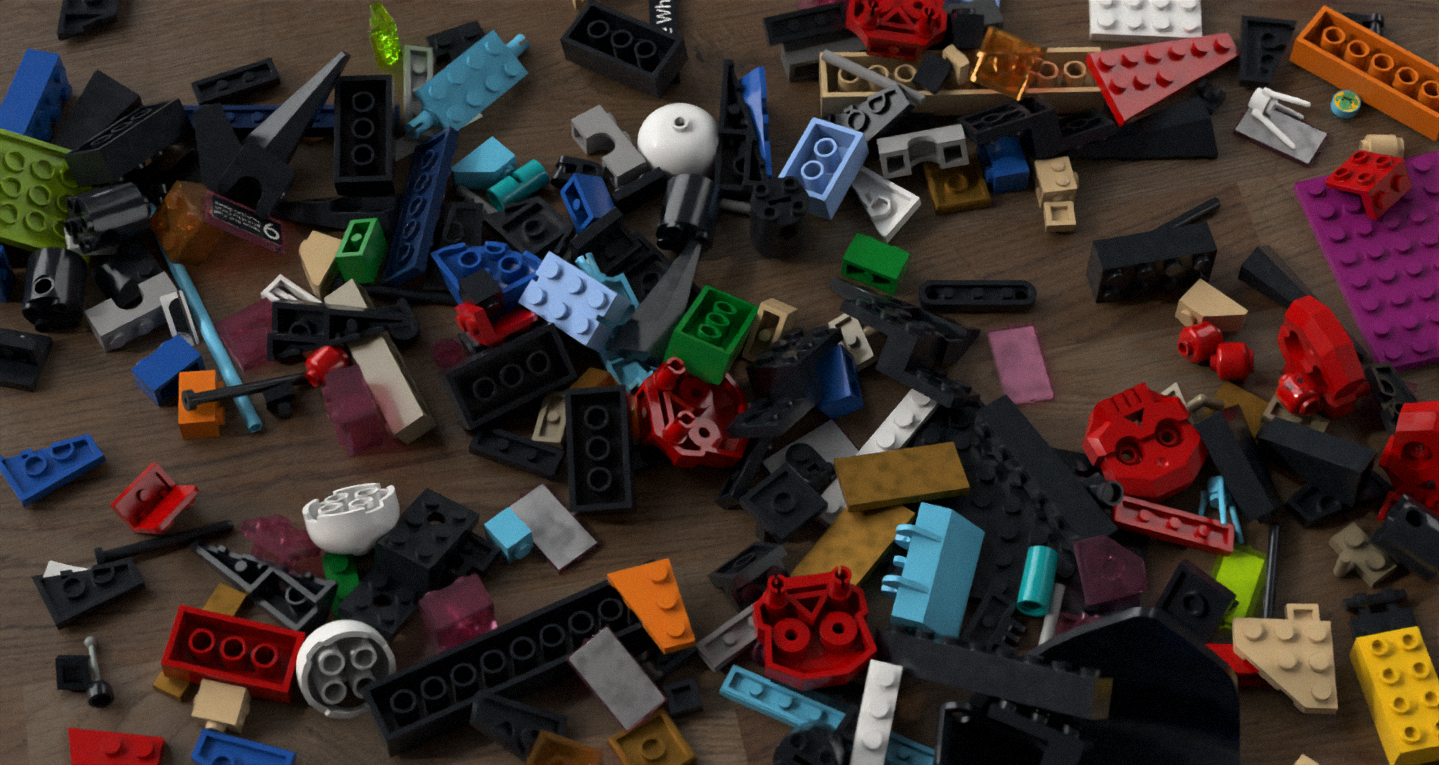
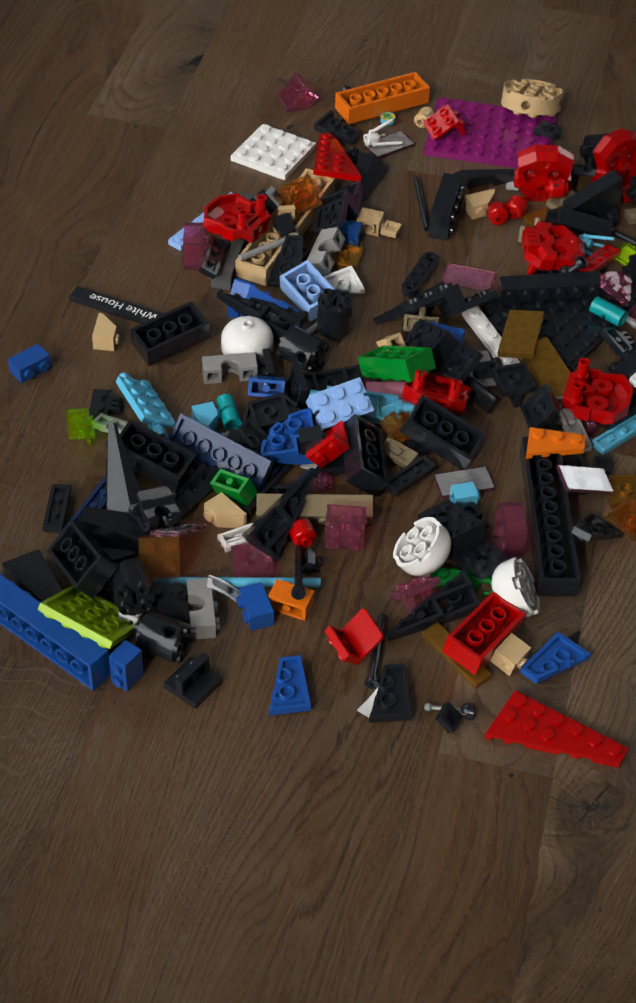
camera: 65 degrees left, 10 degrees down
(581, 166) = (238, 383): black plate -> none
(657, 316) = (377, 388): black wedge -> none
(875, 264) = (377, 299): green brick -> none
(935, 572) = (580, 344): medium azure piece -> none

